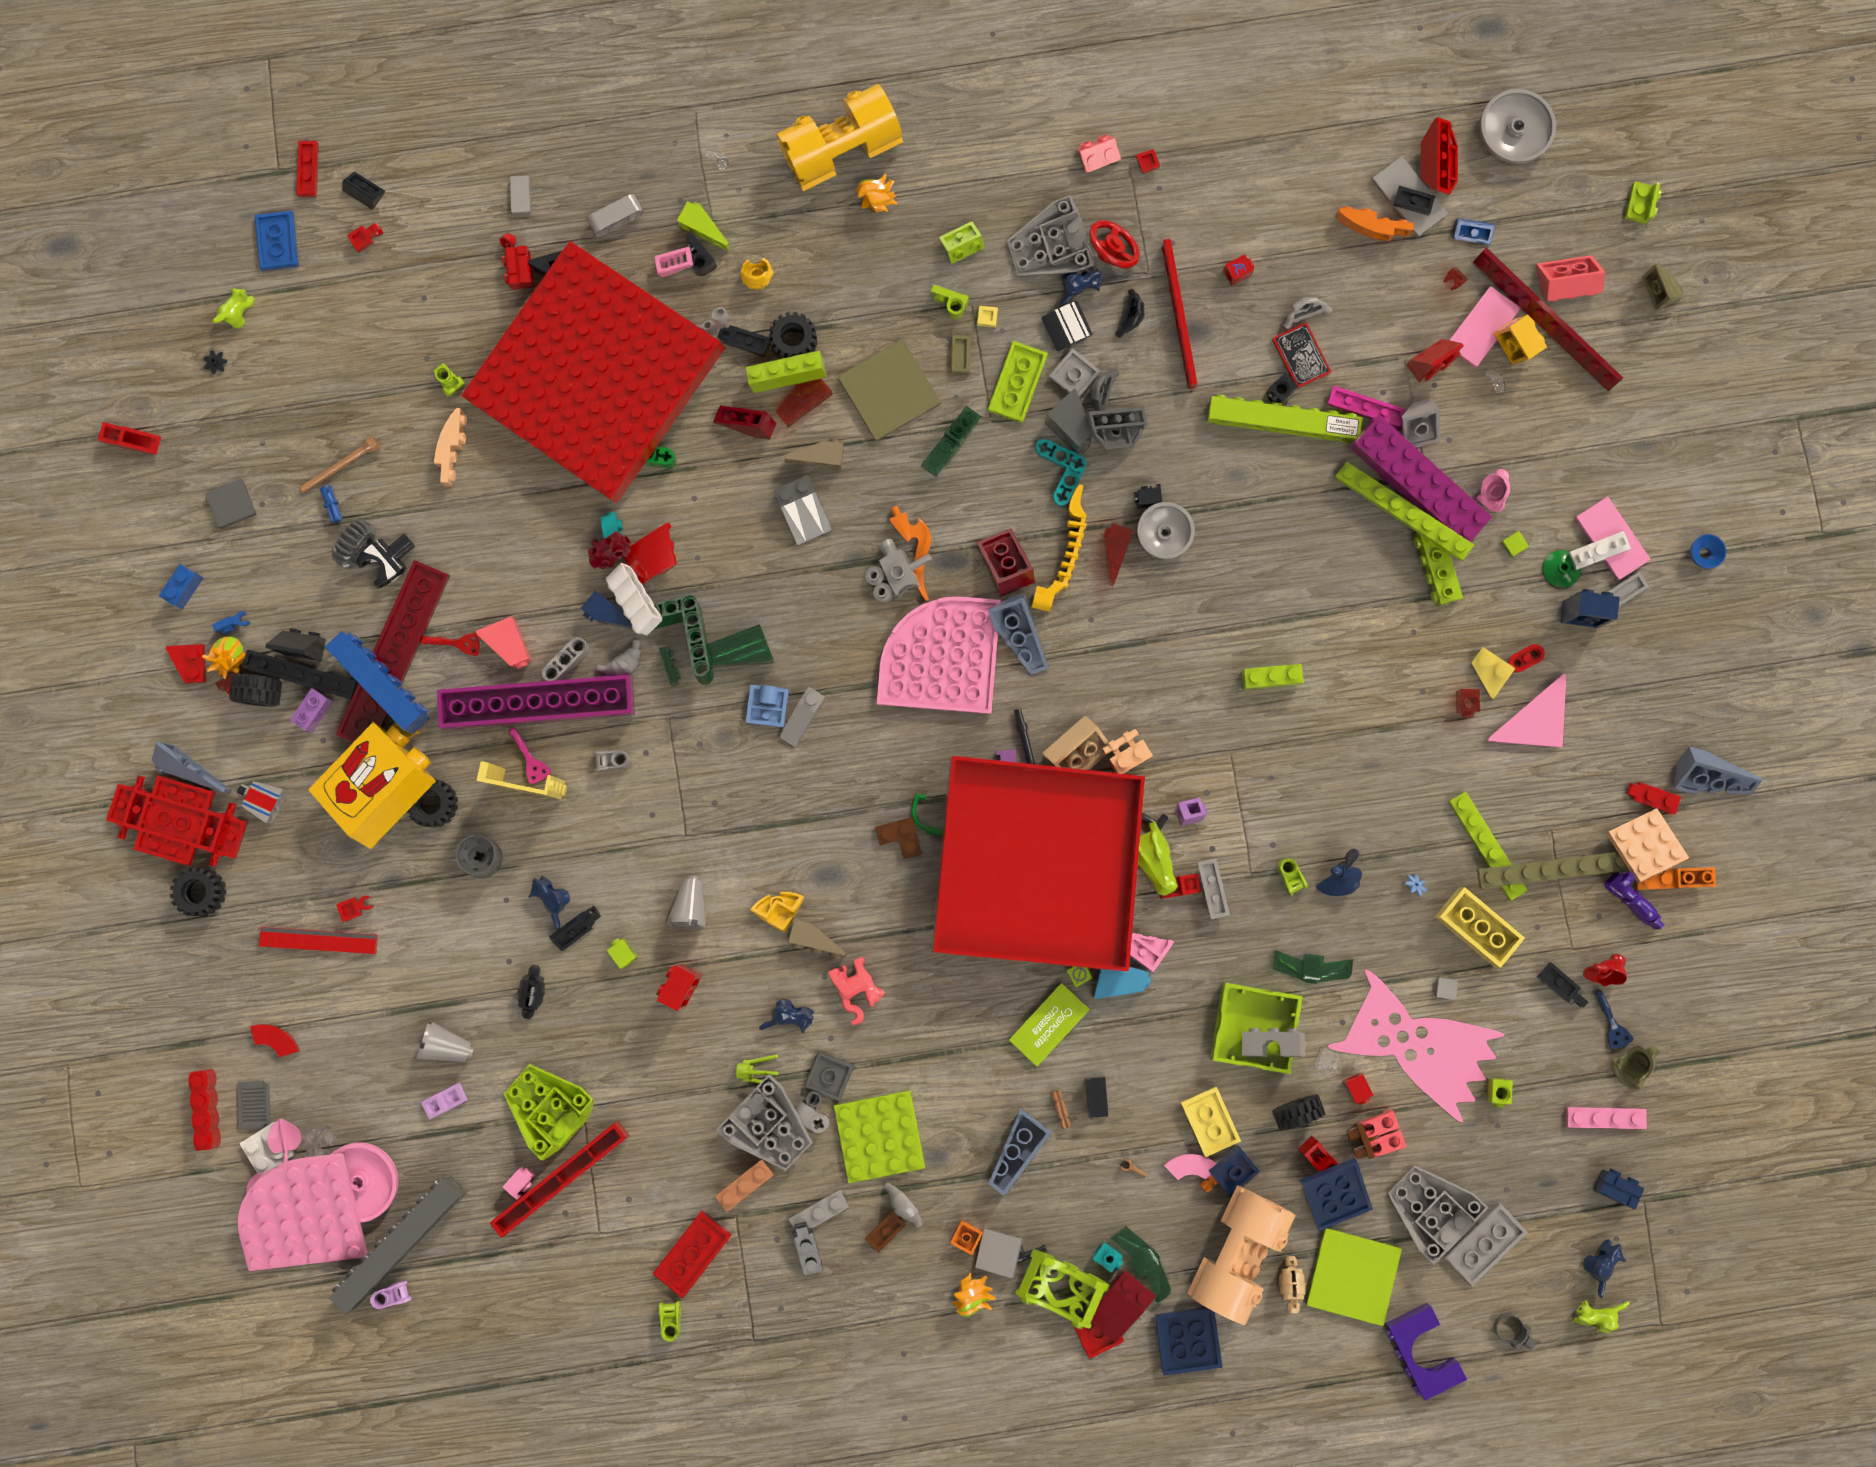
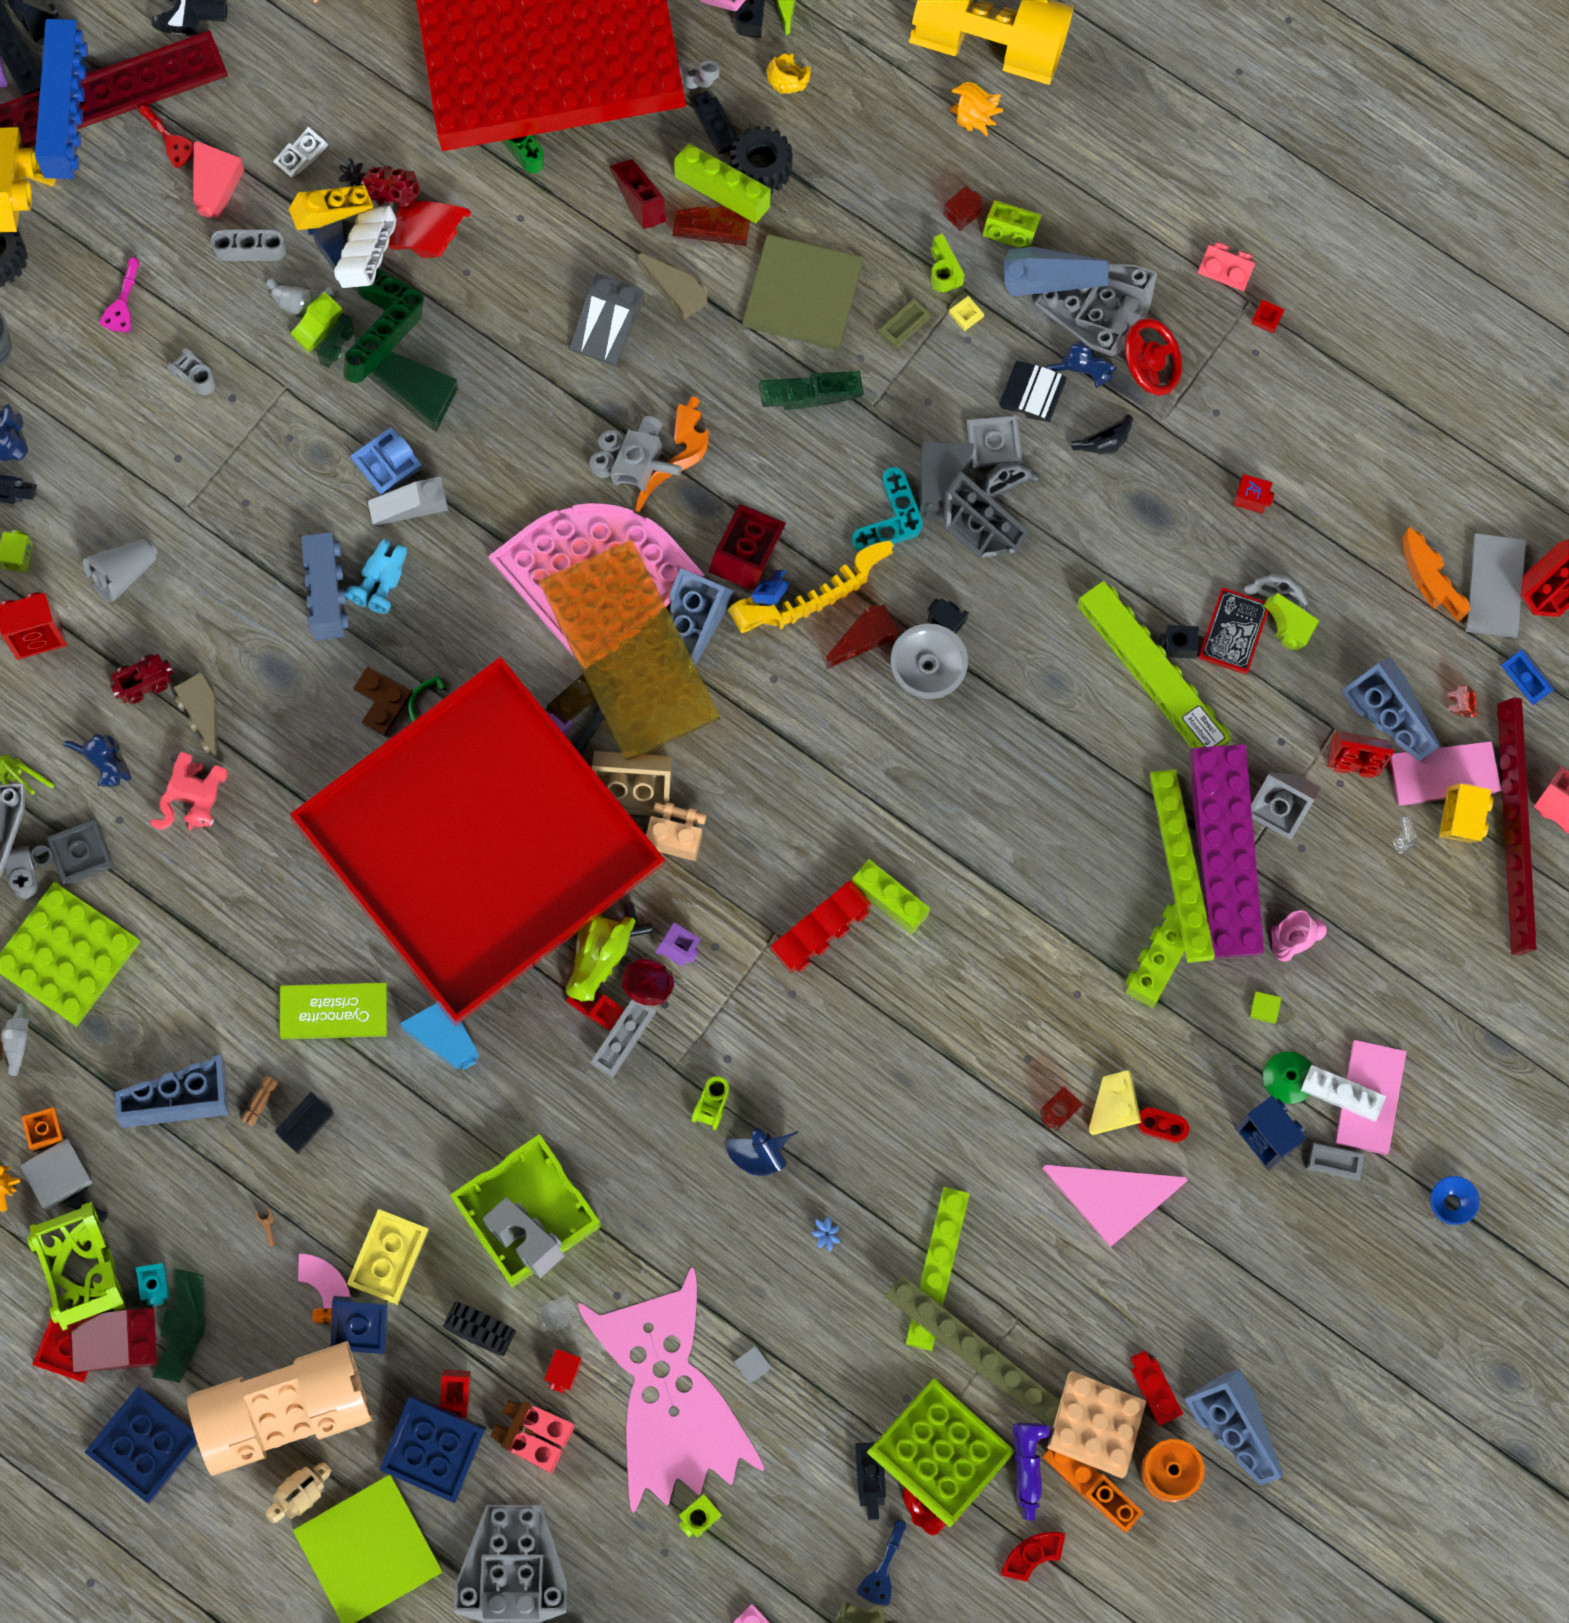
camera: 40 degrees right, 10 degrees down
(494, 776) = (106, 329): light yellow panel -> none
(535, 702) = (182, 255): magenta brick -> none
(537, 580) = (301, 154): none -> white slope
(579, 564) = (351, 173): none -> black plant
(590, 596) = (327, 206): none -> yellow slope
(610, 524) = (421, 164): teal brick -> none
(649, 666) = (317, 322): none -> lime arch
(766, 946) = (147, 675): none -> dark red brick
(778, 910) = (198, 654): yellow brick -> none
(807, 807) = (323, 586): none -> sand blue wedge
(830, 766) = (379, 569): none -> medium azure piece
(927, 258) = (963, 208): none -> clear red brick
(1002, 731) = (571, 700): none -> dark brown plate
(1005, 681) = (629, 650): none -> clear yellow plate
(1009, 249) = (1045, 270): none -> sand blue wedge
(1017, 382) = (932, 398): lime tile -> none
(1045, 574) = (771, 590): none -> blue plate
(1079, 975) = (411, 993): lime tile -> none
(1149, 950) = (500, 1034): bright pink wing -> none
(1179, 314) = (1152, 480): red tile -> none
(1195, 847) = (647, 982): none -> dark red tile
(1252, 728) = (820, 927): none -> red brick
(1312, 967) = (640, 1212): clear green plate -> none
(1330, 322) = (1292, 622): none -> lime arch
(1365, 406) = (1246, 731): dark pink plate -> none
(1414, 200) = (1493, 589): black plate -> none
(1417, 316) = (1391, 705): none -> sand blue wedge
(1479, 927) = (844, 1334): light yellow brick -> none
(1587, 938) = (941, 1452): none -> lime tile
(1676, 941) = (1031, 1553): none -> red tile
(1706, 831) = (1187, 1464): none -> orange wheel

